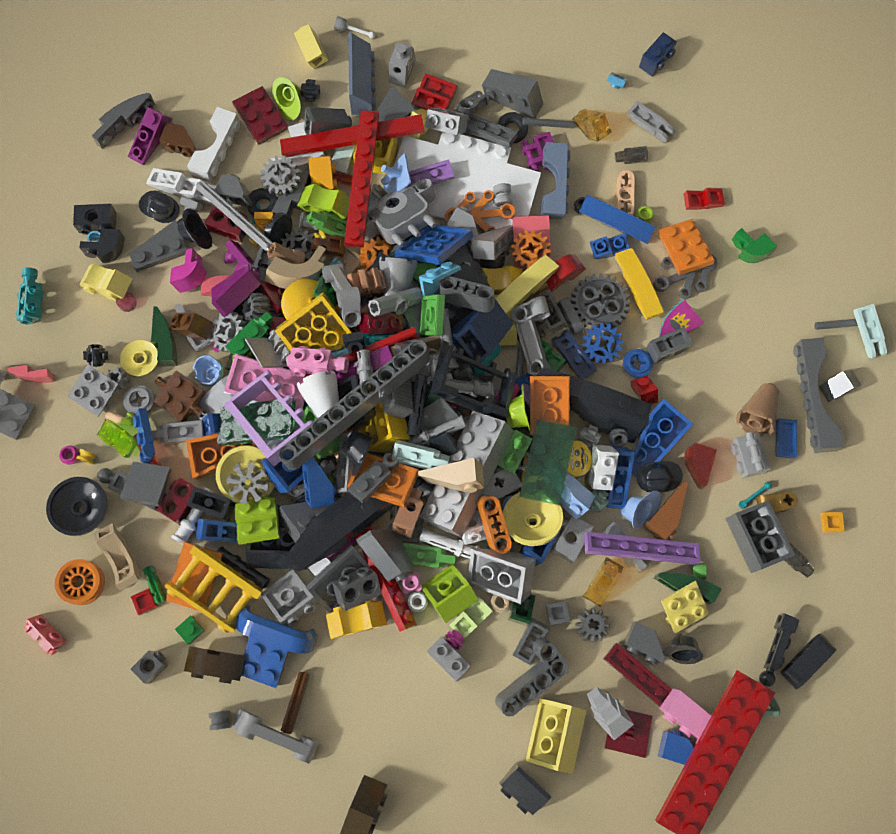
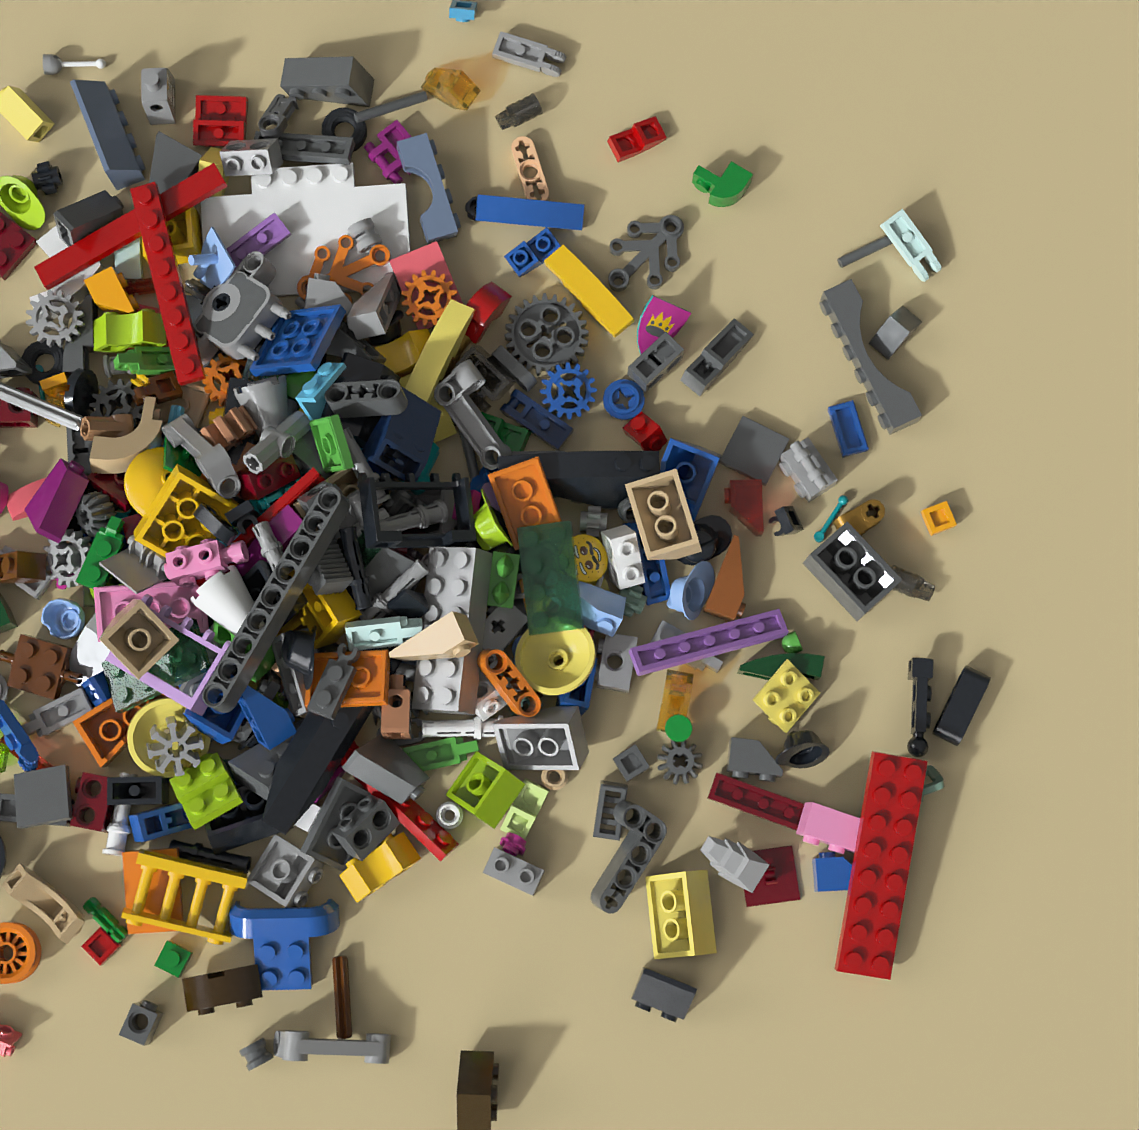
camera: 15 degrees left, 5 degrees up
(236, 253) = (36, 444): magenta tile -> none
(250, 396) = (138, 638): none -> tan slope
(333, 339) = (215, 523): none -> black beam
(415, 577) = (440, 797): bright pink plate -> none
(522, 612) = (586, 779): dark green slope -> none
(600, 600) = (678, 727): none -> green tile
(642, 449) = (663, 516): none -> tan slope
(645, 213) = (564, 191): lime plate -> none
(685, 247) = (633, 217): orange plate -> none
(711, 357) = (716, 357): none -> dark grey slope
(716, 429) = (754, 450): none -> dark grey tile
(725, 485) = (788, 520): none -> black tile
(760, 411) = (801, 406): medium nougat cone -> none

